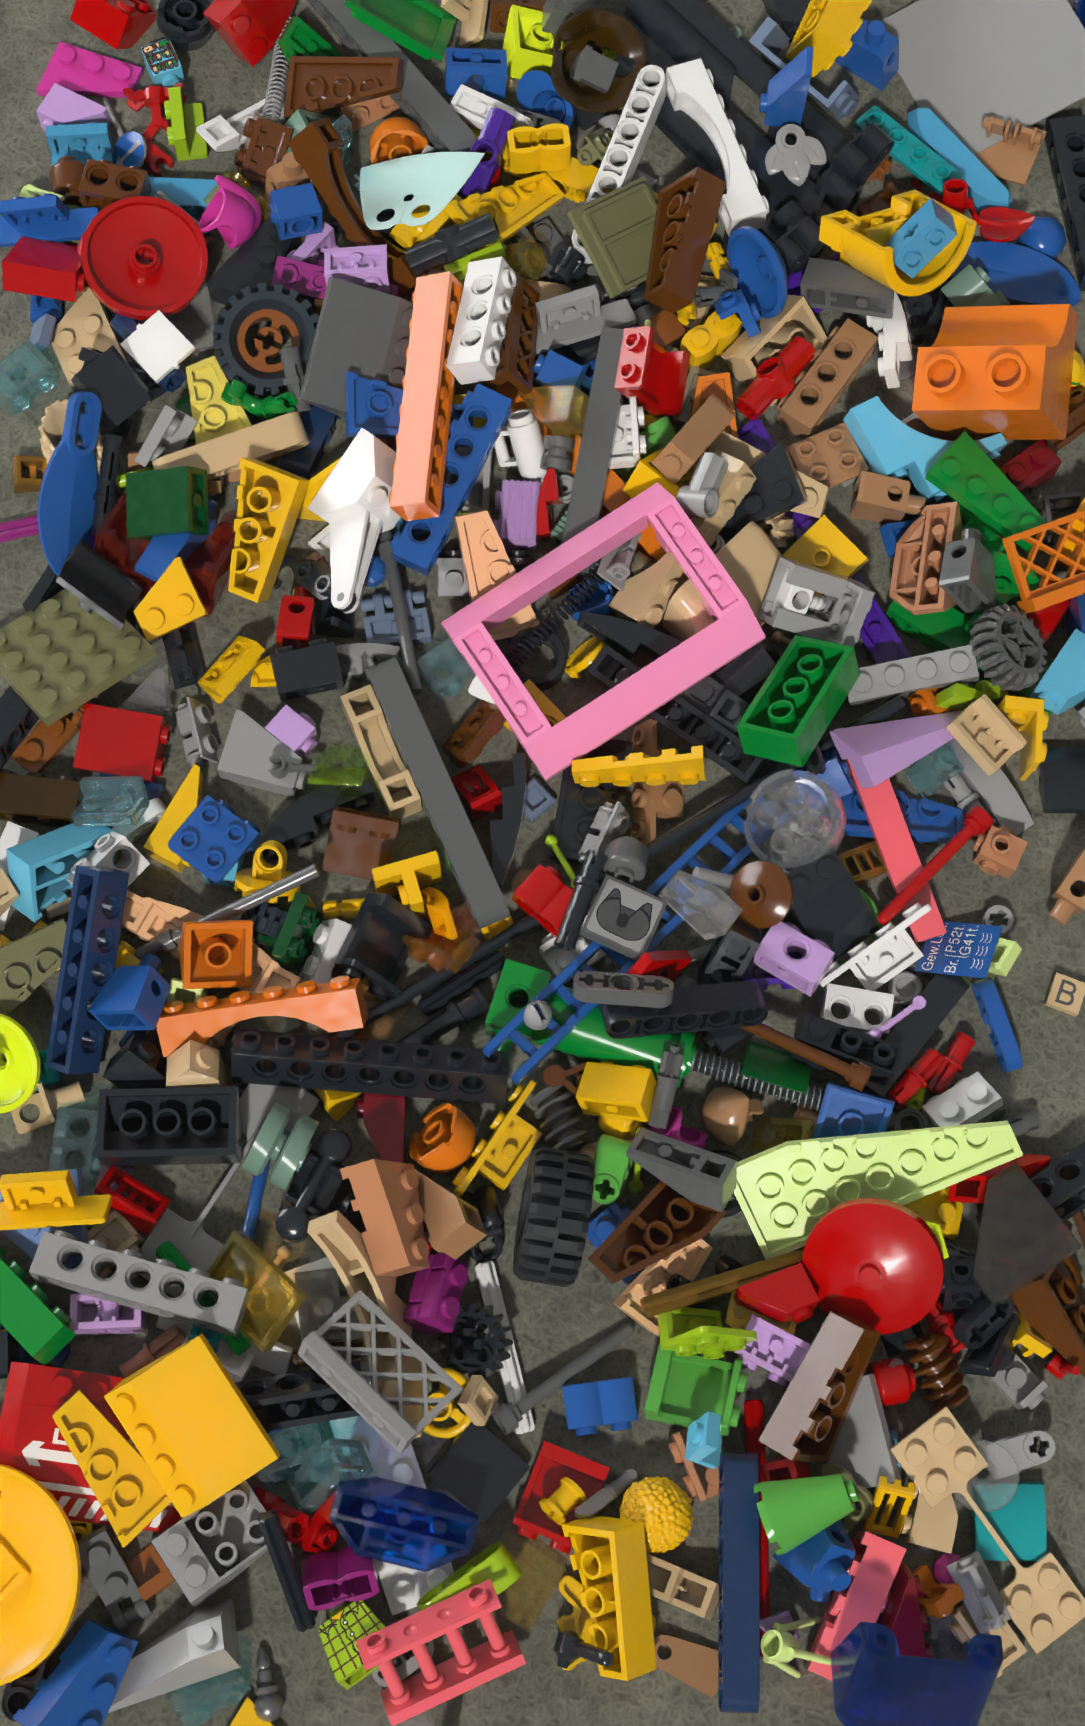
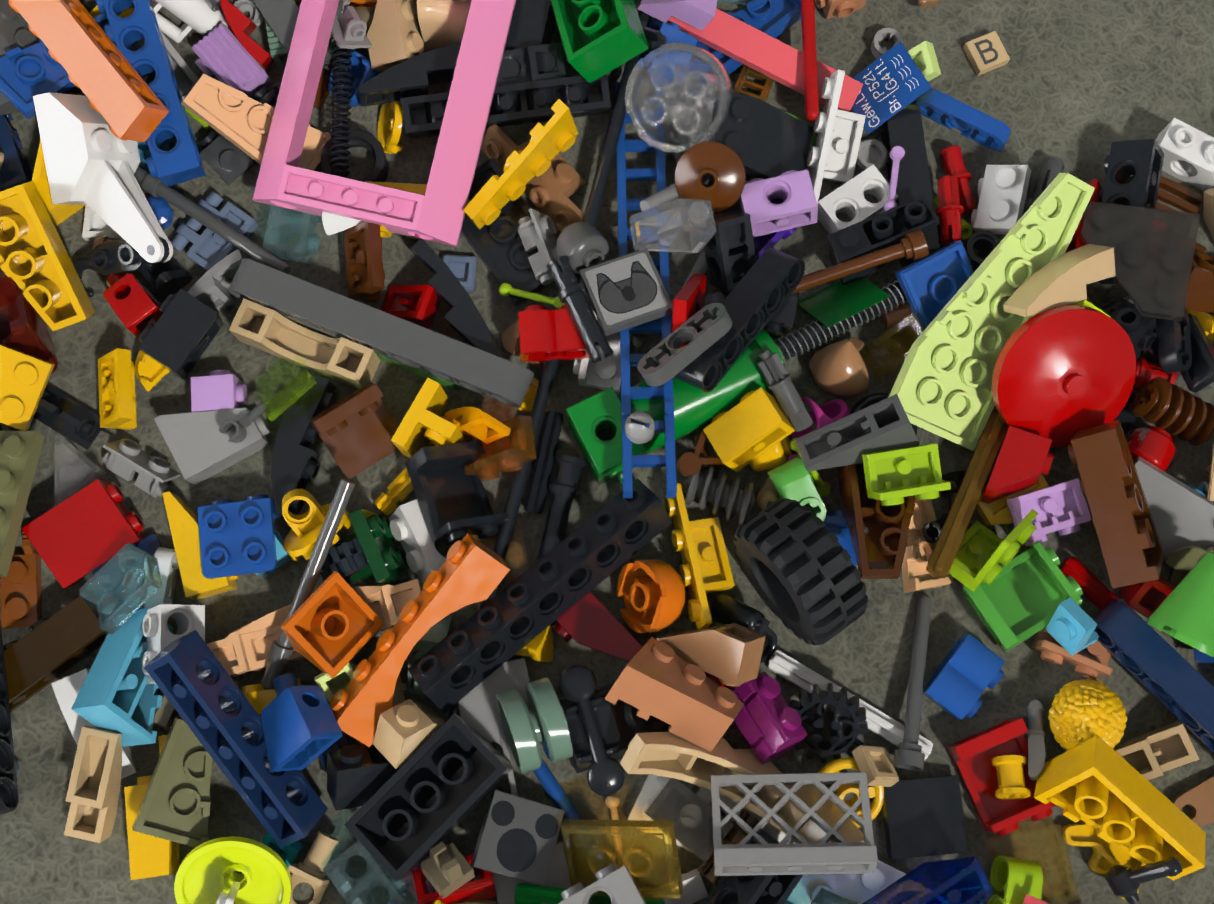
camera: 40 degrees left, 5 degrees up
(134, 1183) = (446, 869): none -> dark tan tile
(198, 1210) = (517, 838): none -> dark grey tile
(690, 1220) = (904, 473): none -> lime bracket
(935, 1197) = (1062, 280): none -> tan slope

